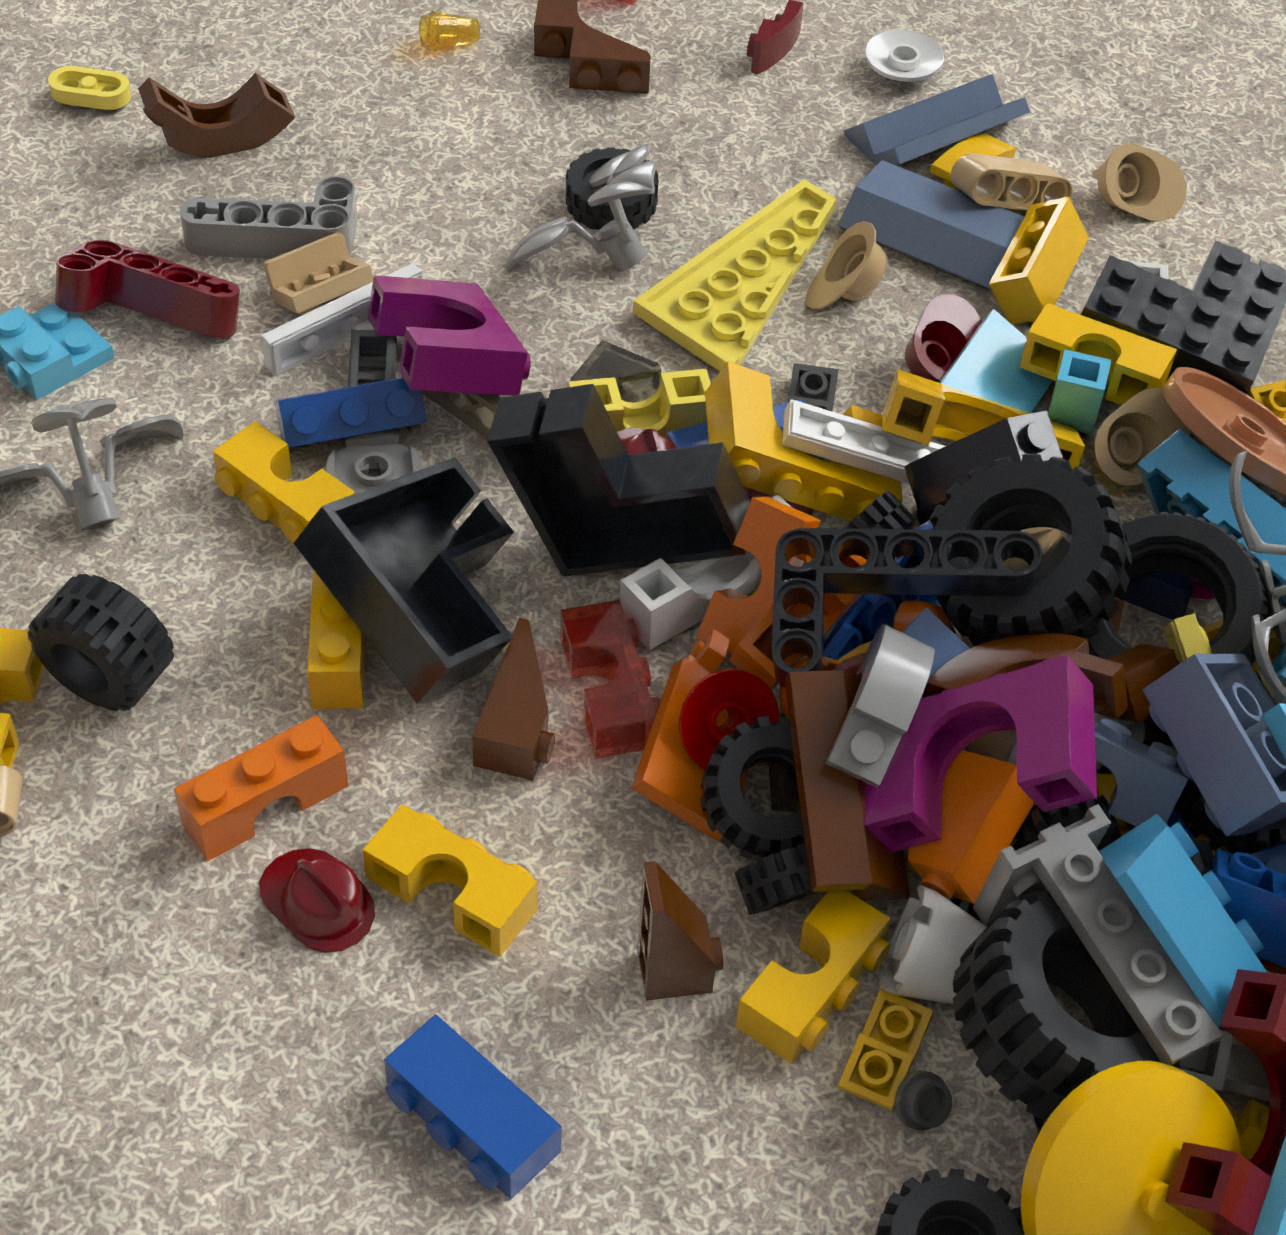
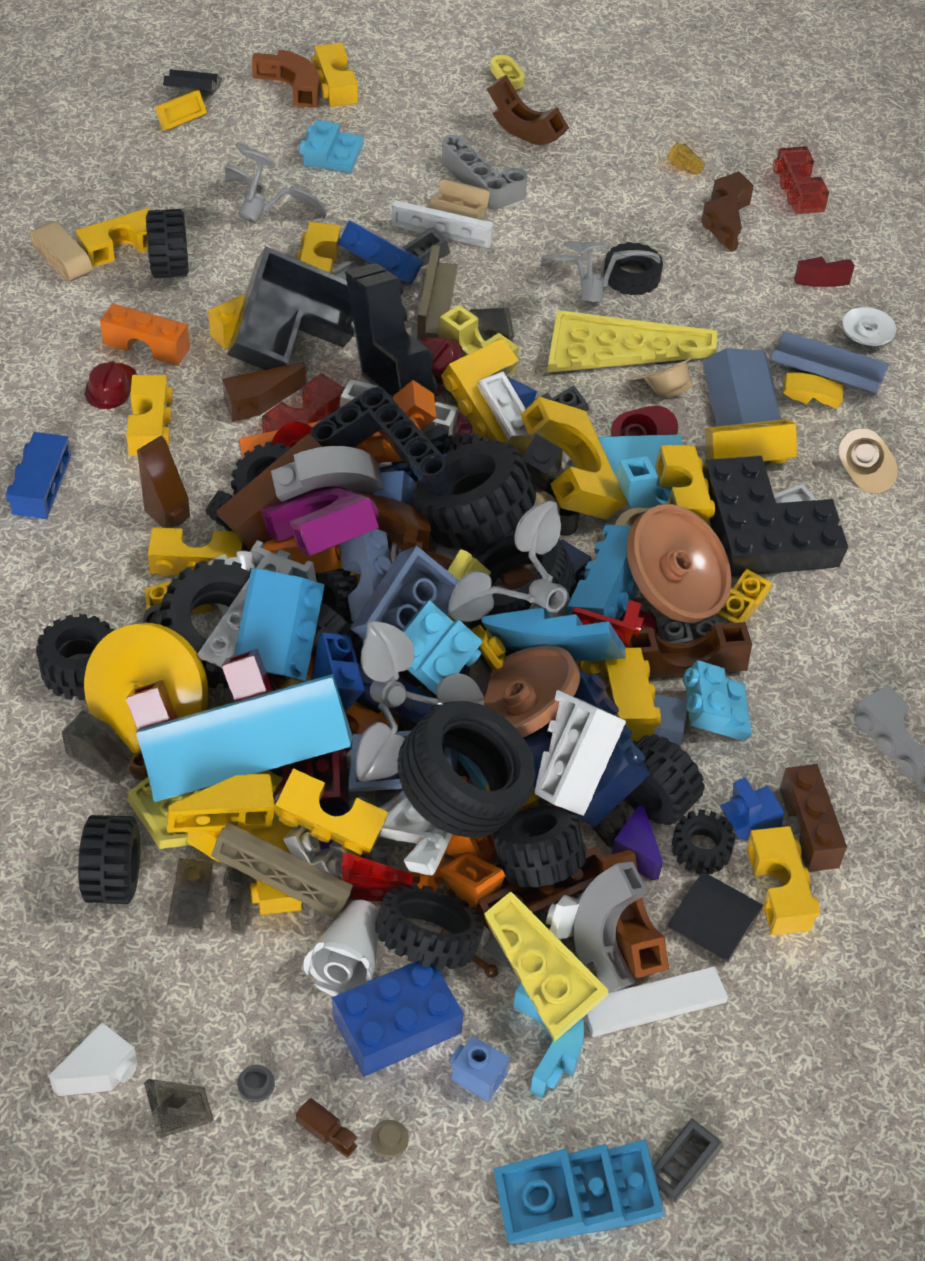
camera: 55 degrees right, 0 degrees up
(146, 284) = (395, 150): dark red beam -> none
(449, 335) = (439, 269): magenta arch -> none
(1008, 181) = (786, 404): tan beam -> none

